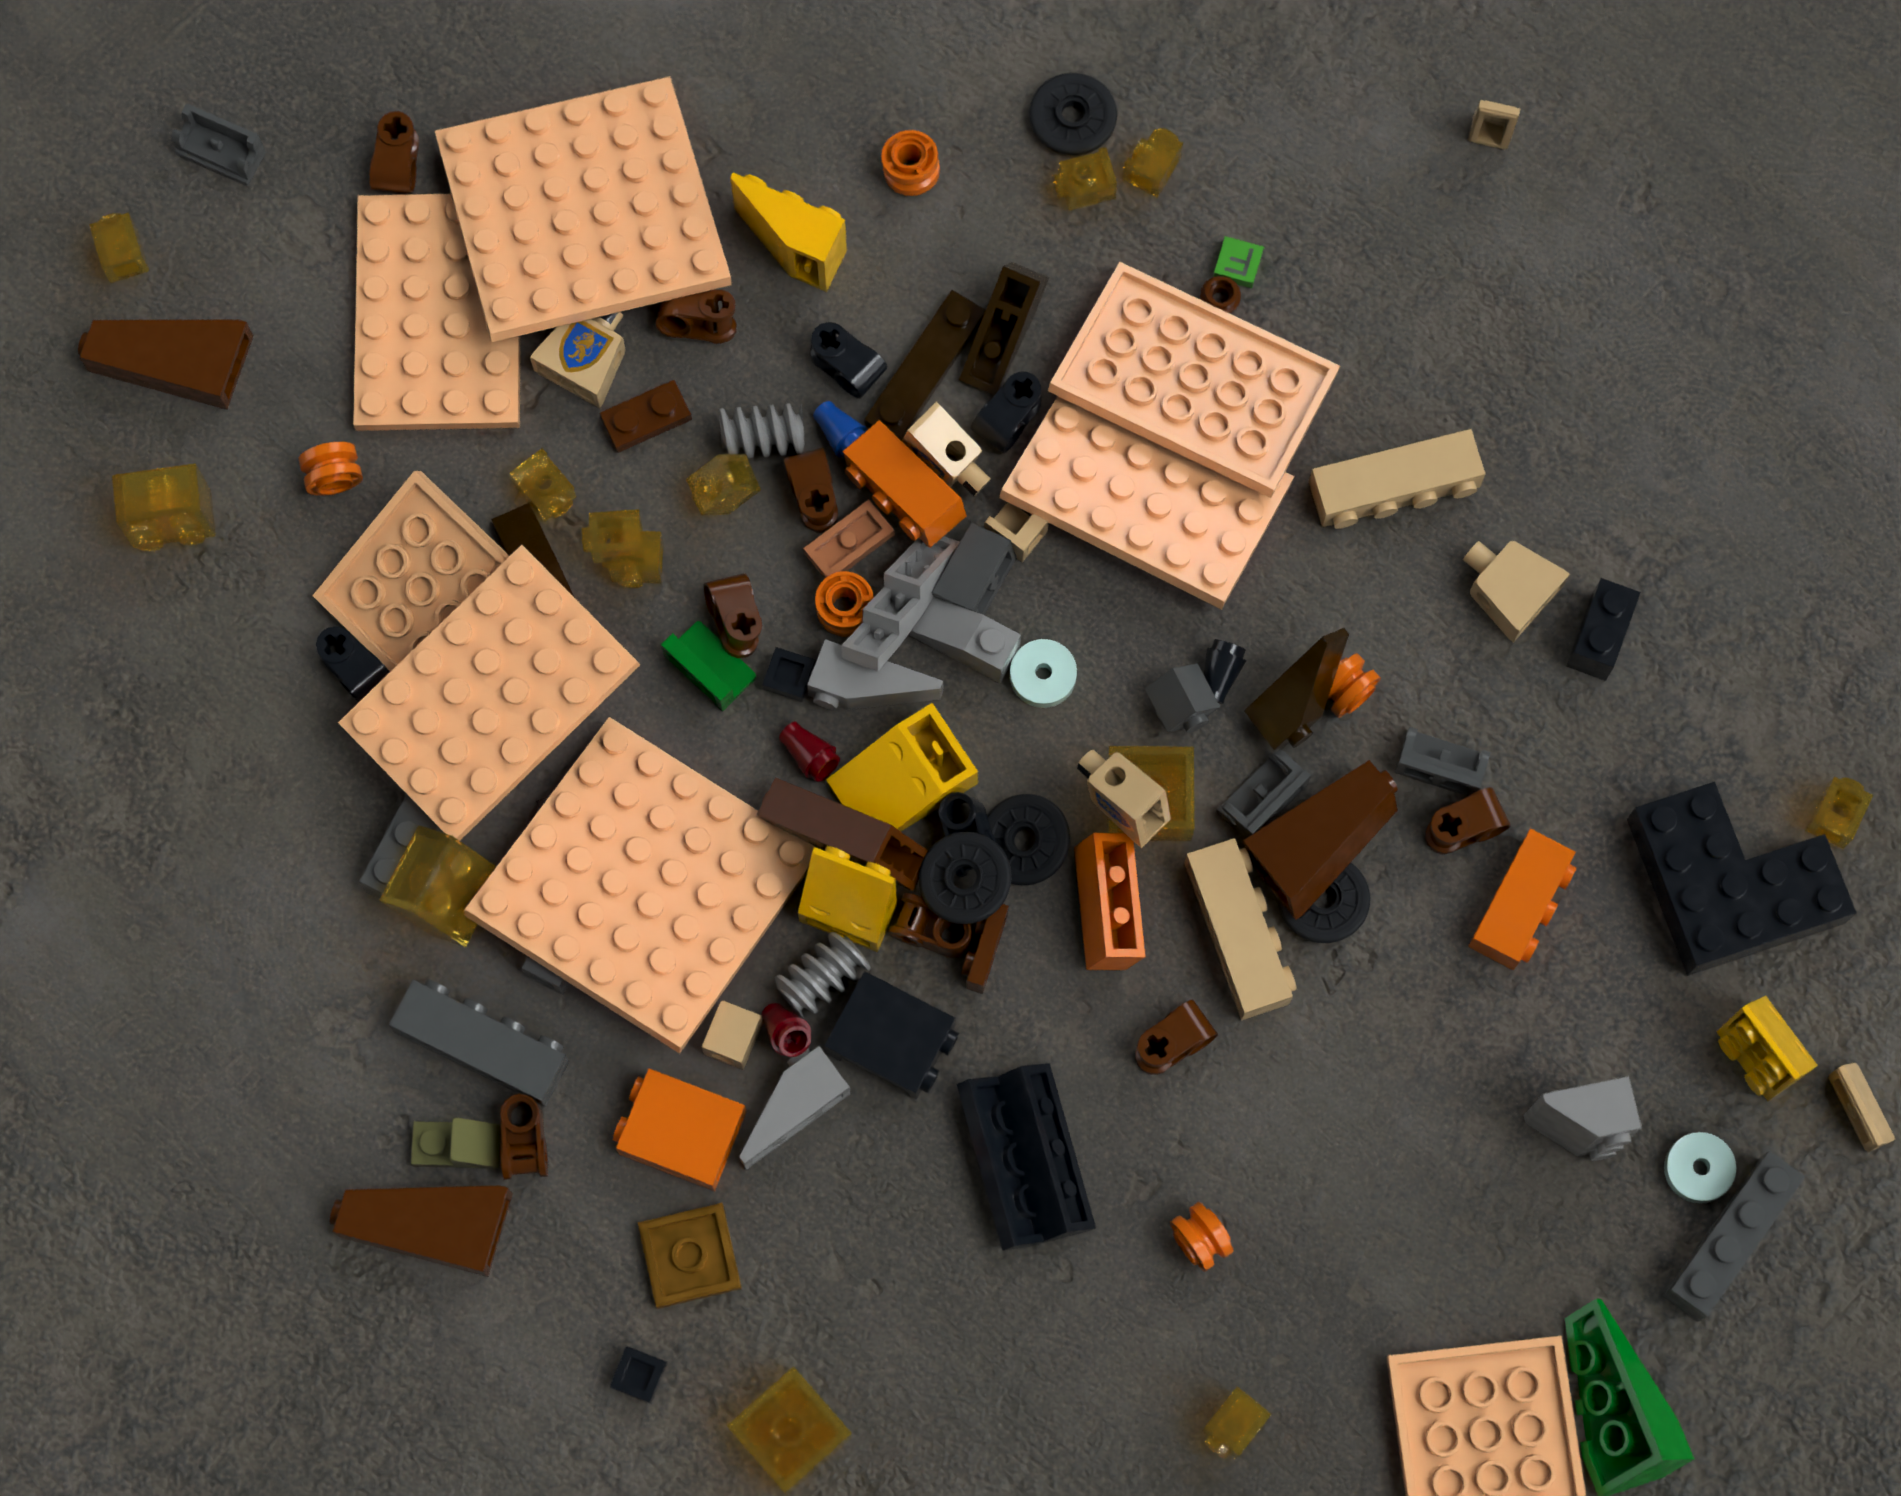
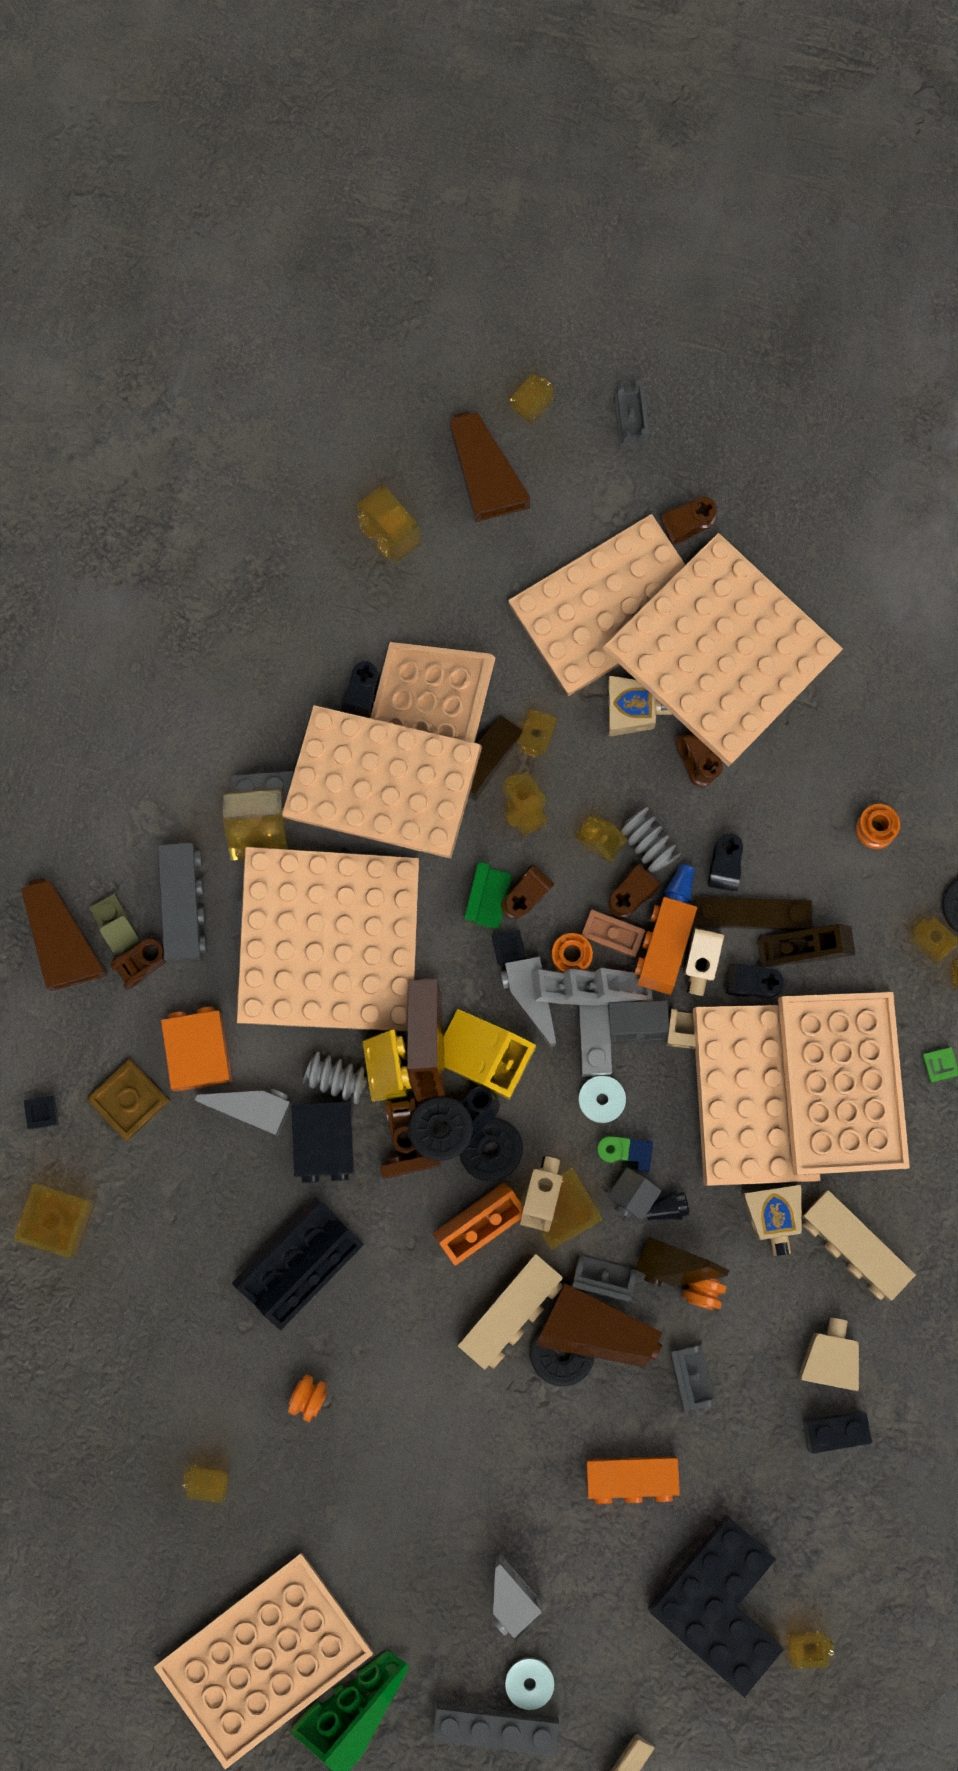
camera: 65 degrees right, 5 degrees up
(330, 468) = (471, 604): orange wheel -> none
(645, 416) = (619, 766): reddish brown plate -> none
(732, 1034) = (269, 1046): tan panel -> none
(787, 1031) = (288, 1077): dark red cone -> none
(800, 237) = (784, 794): yellow slope -> none
(812, 754) = (468, 988): dark red cone -> none
(1124, 677) = (628, 1150): none -> leg
(1179, 1034) = (426, 1313): reddish brown piece -> none
(1223, 285) = (919, 1064): reddish brown plate -> none
(1305, 551) = (775, 1215): none -> torso
(1472, 819) = (665, 1418): reddish brown piece -> none
(1765, 1048) = (626, 1687): yellow slope -> none

